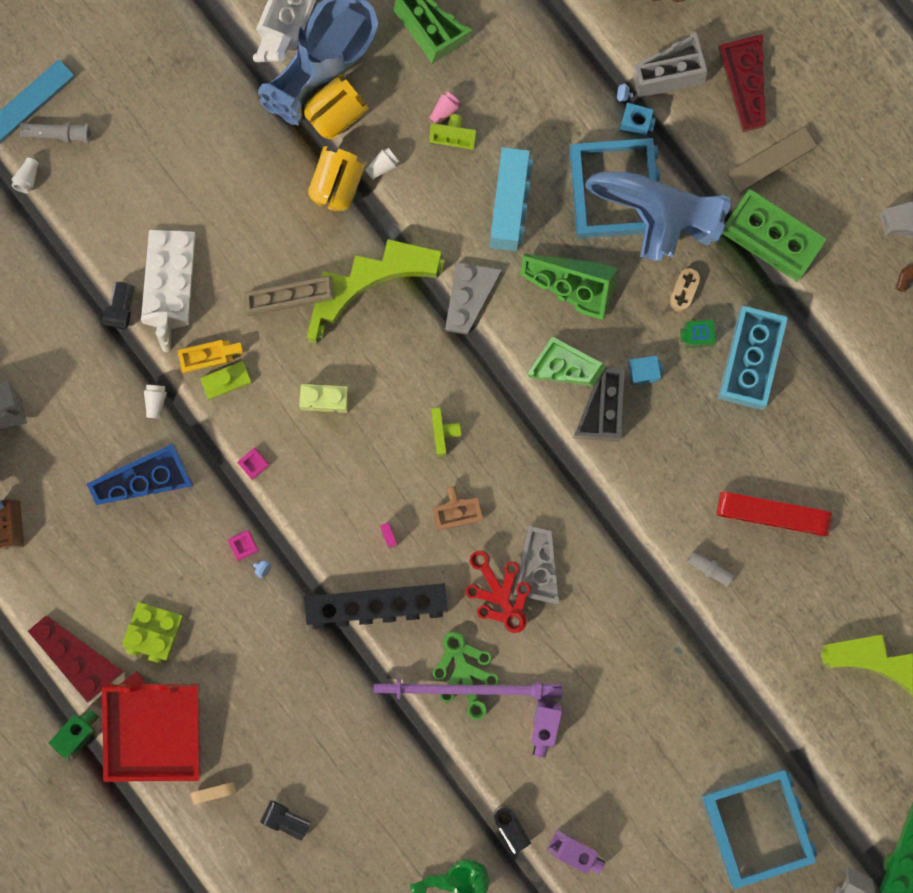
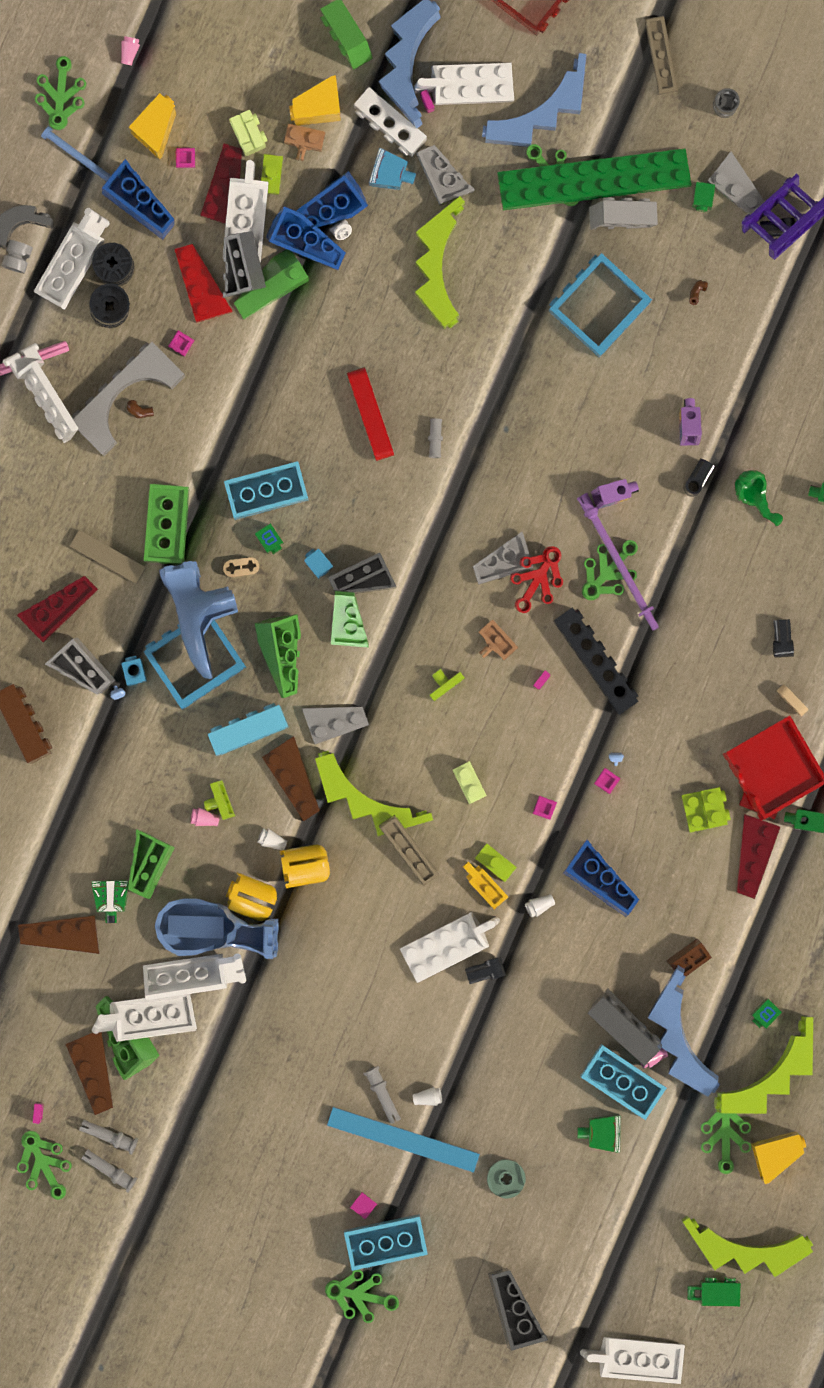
camera: 120 degrees left, 5 degrees up
(440, 221) = (291, 774): none -> reddish brown wing

